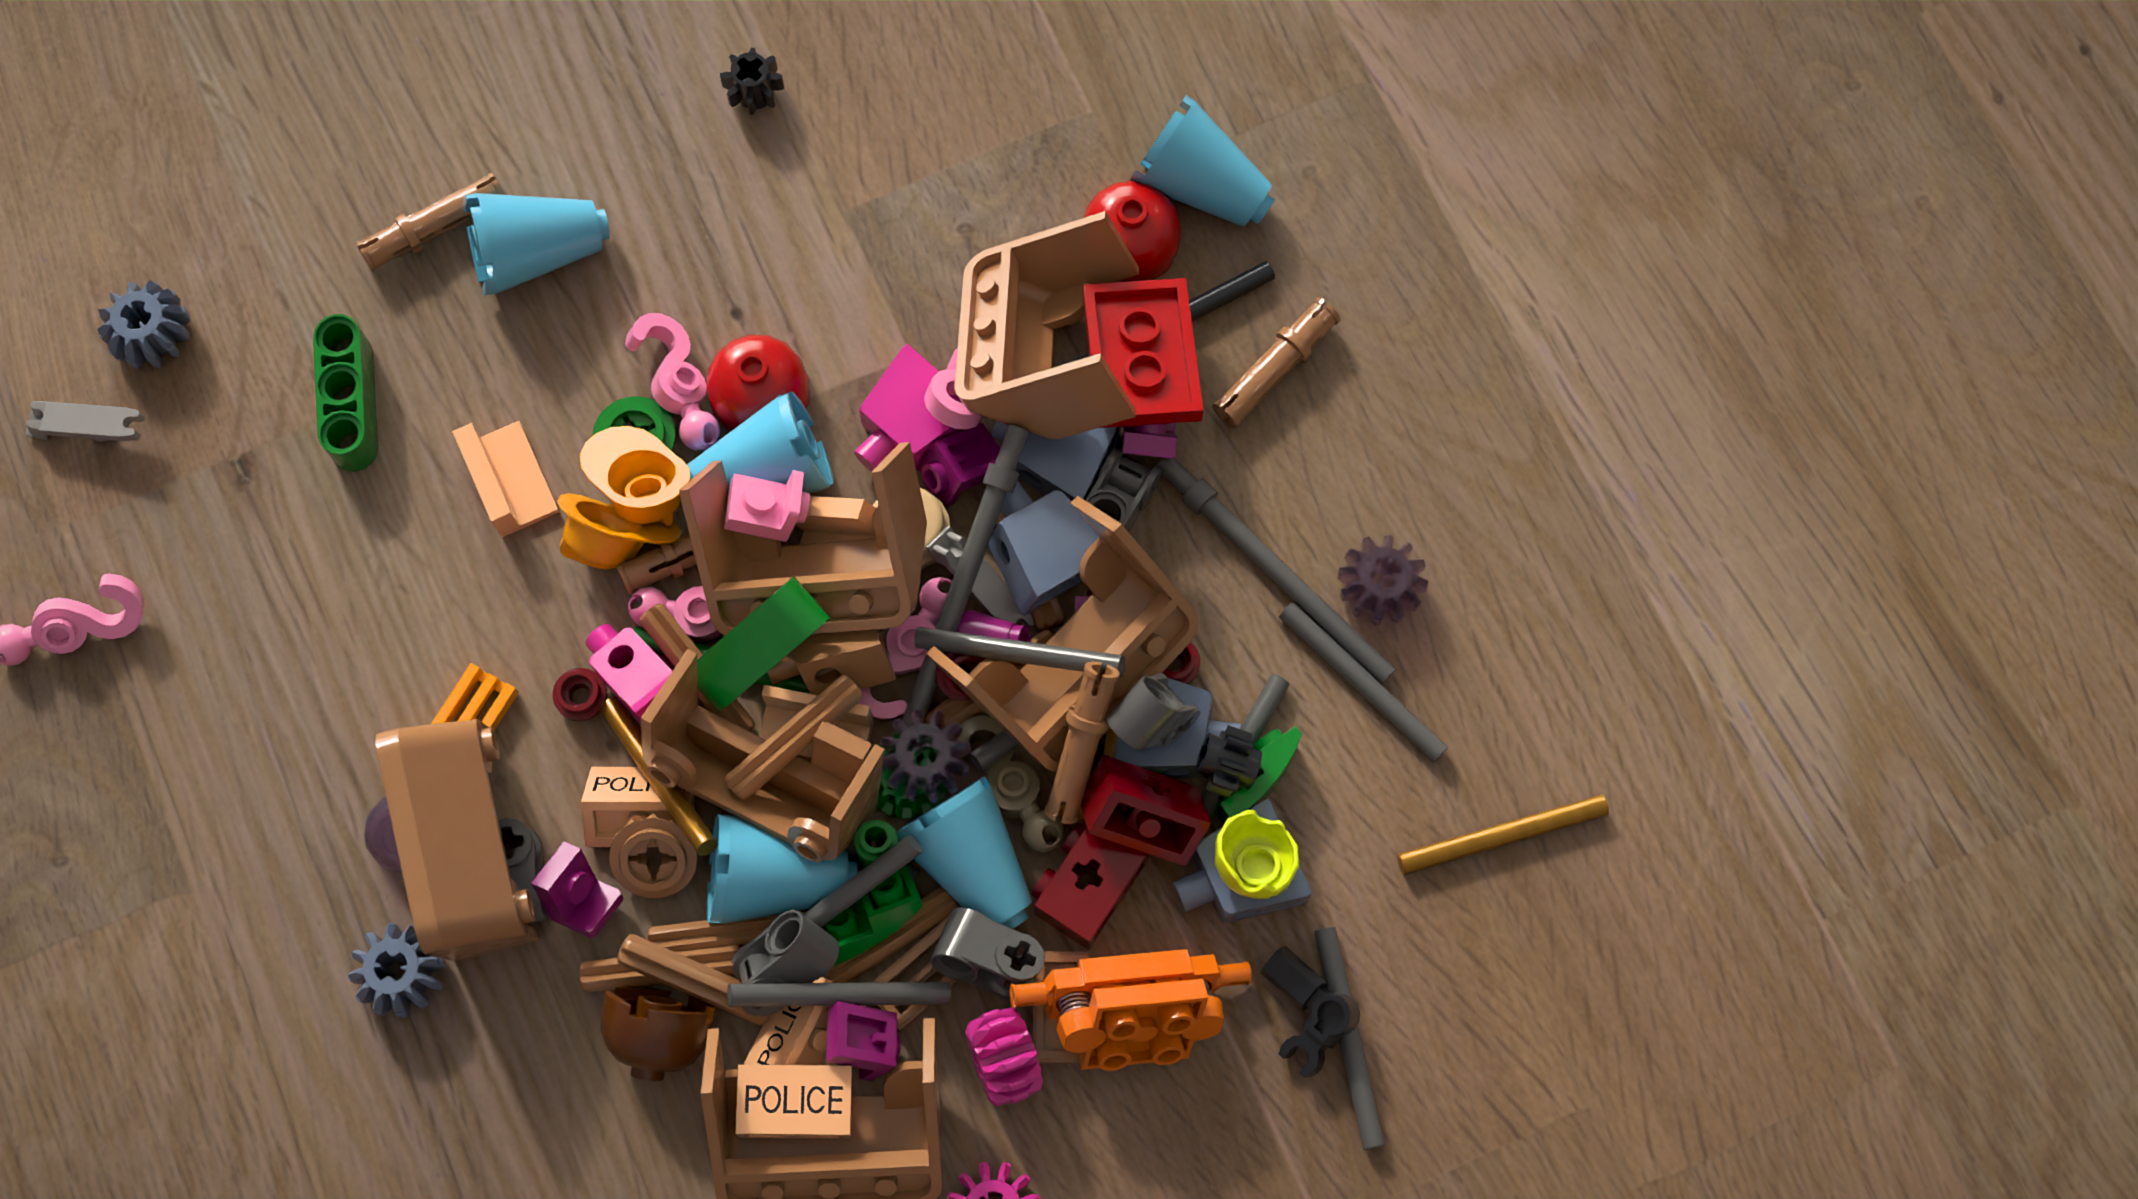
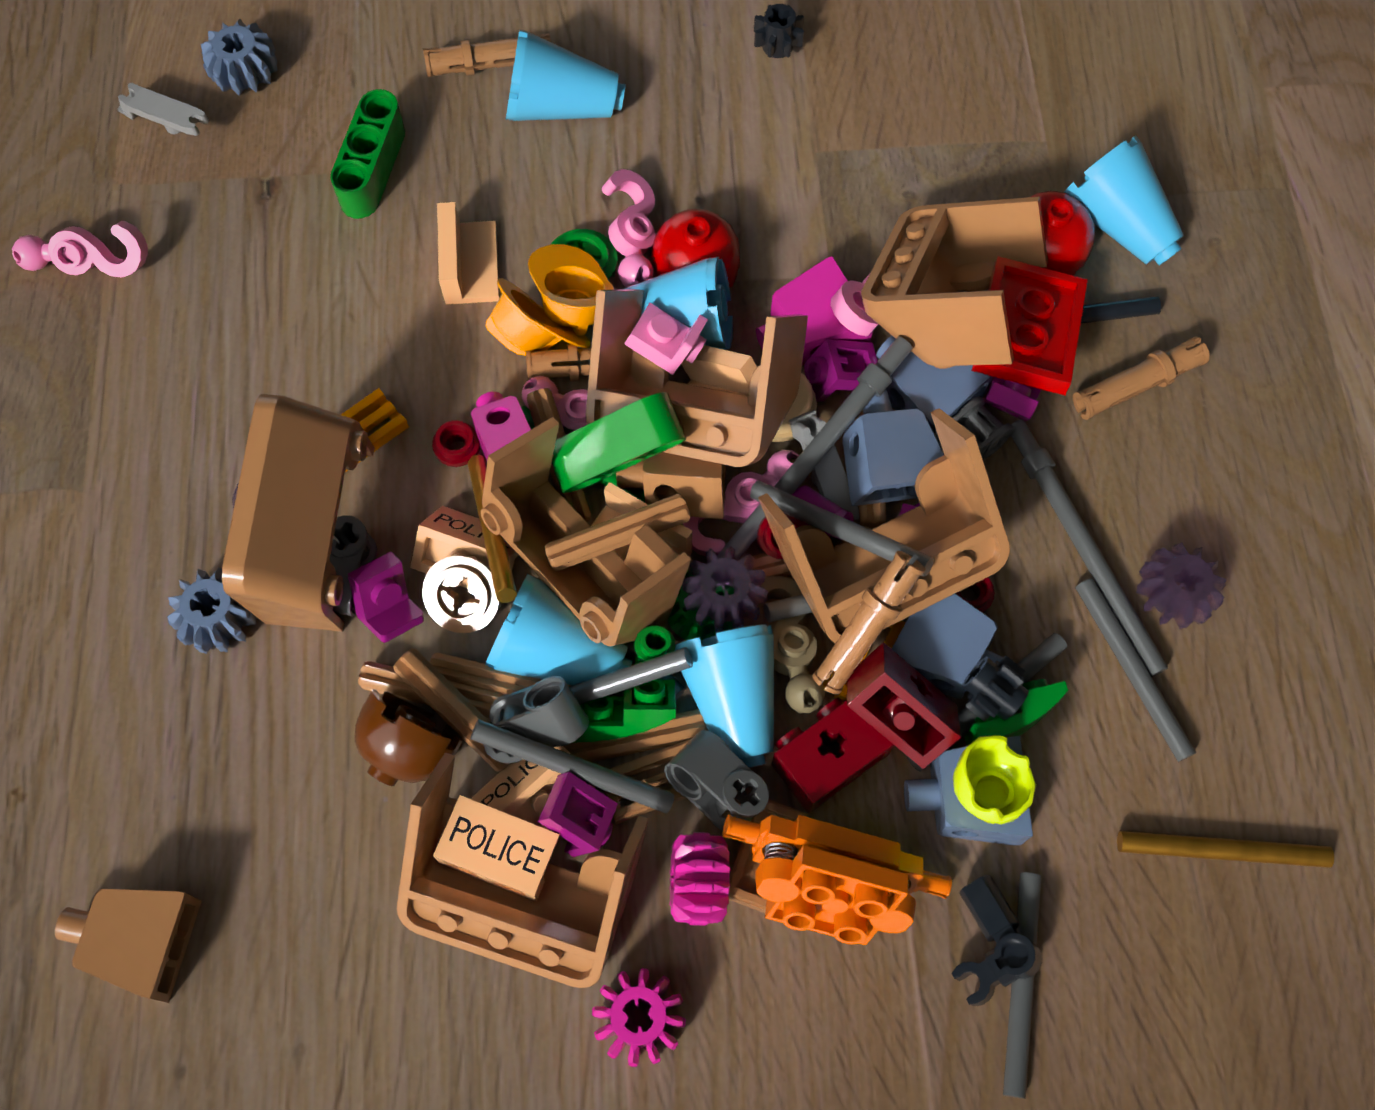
camera: 20 degrees right, 5 degrees down
(1152, 714) = (941, 620): dark grey piece -> none

